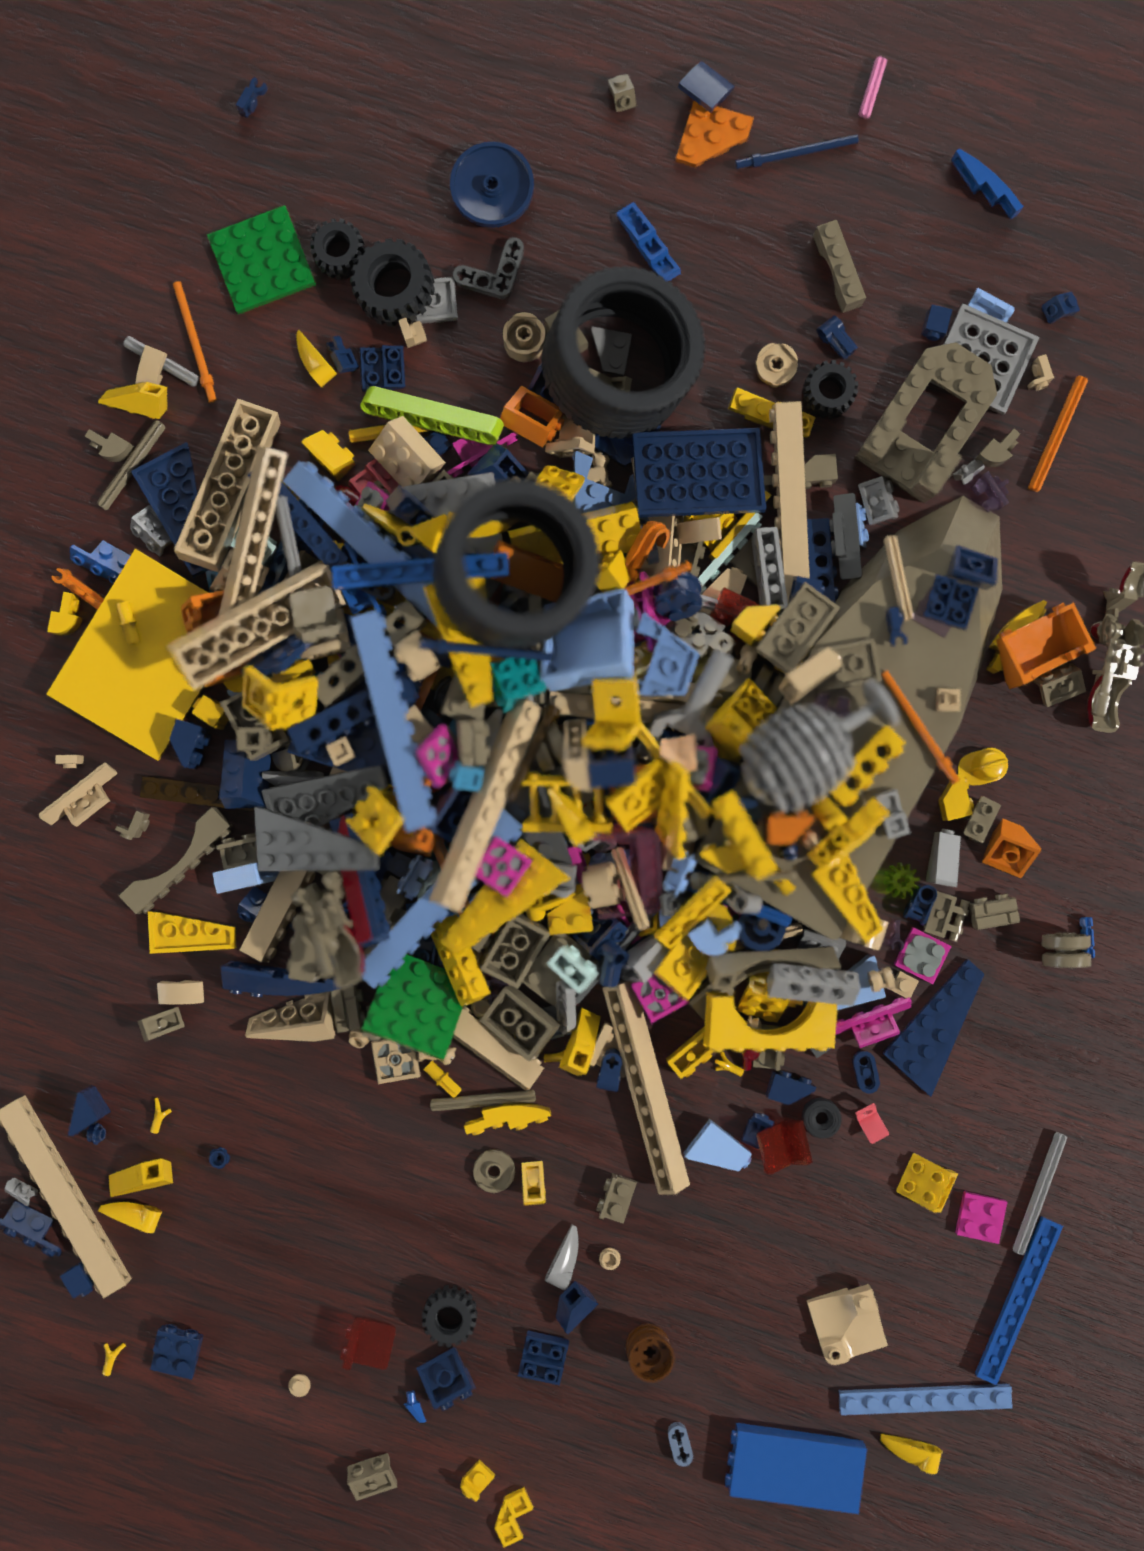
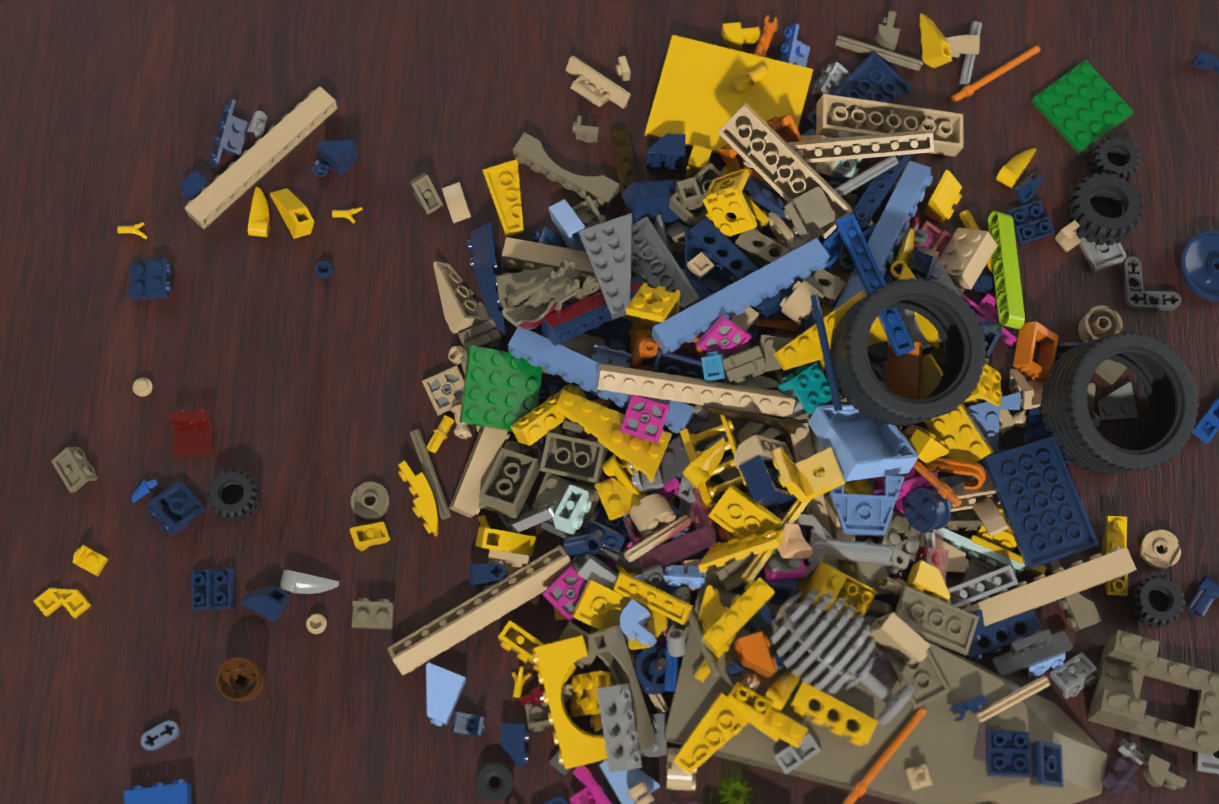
camera: 70 degrees right, 15 degrees down
(784, 1146) = (459, 751): clear red bracket -> none

